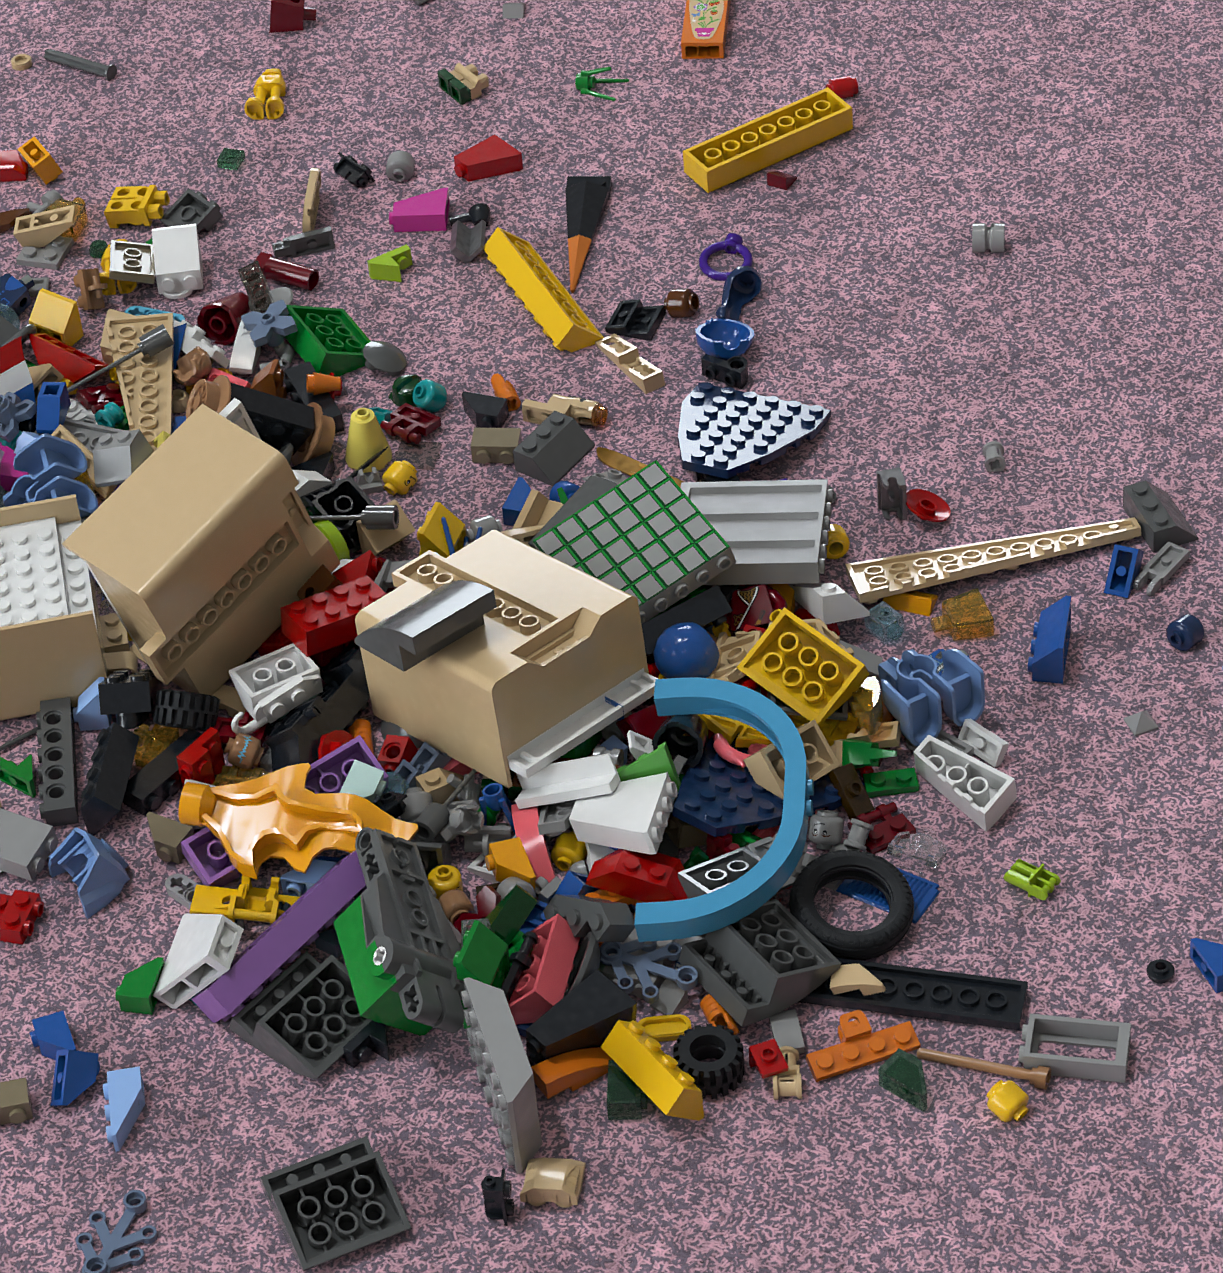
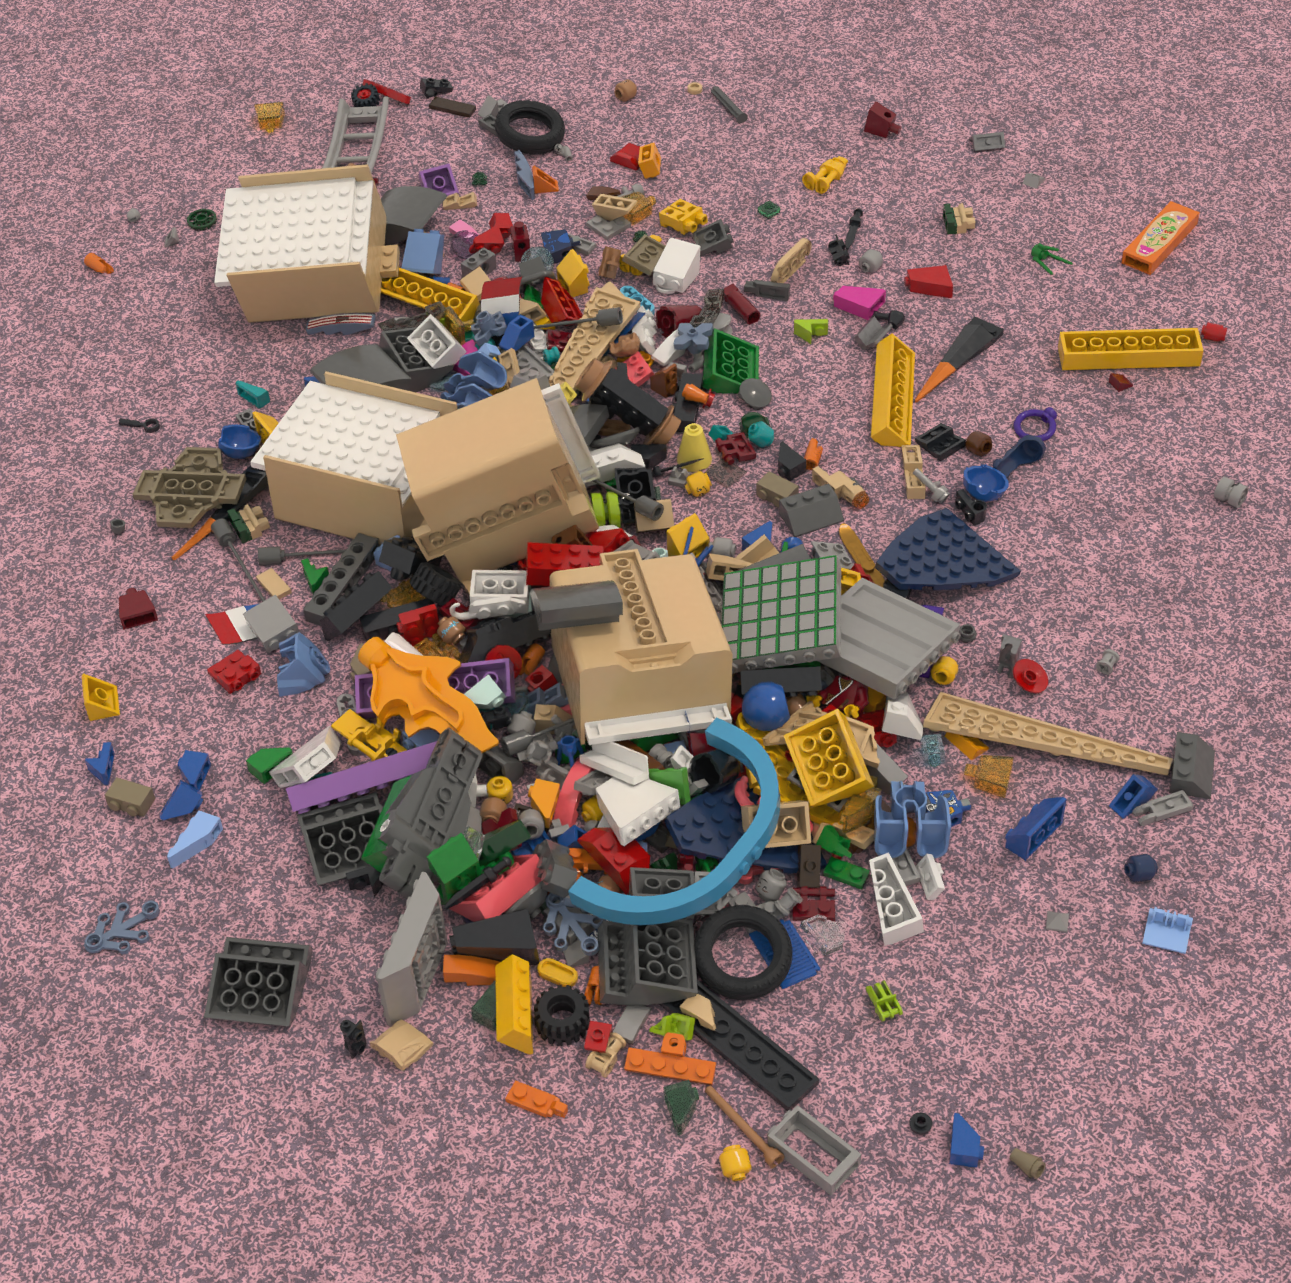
camera: 30 degrees right, 5 degrees up
(346, 134) = (854, 223): none -> black sword
(682, 371) = (940, 494): none -> light grey piece
(748, 1157) = (535, 1100): none -> orange hinge
(834, 1008) = (676, 1024): none -> lime slope

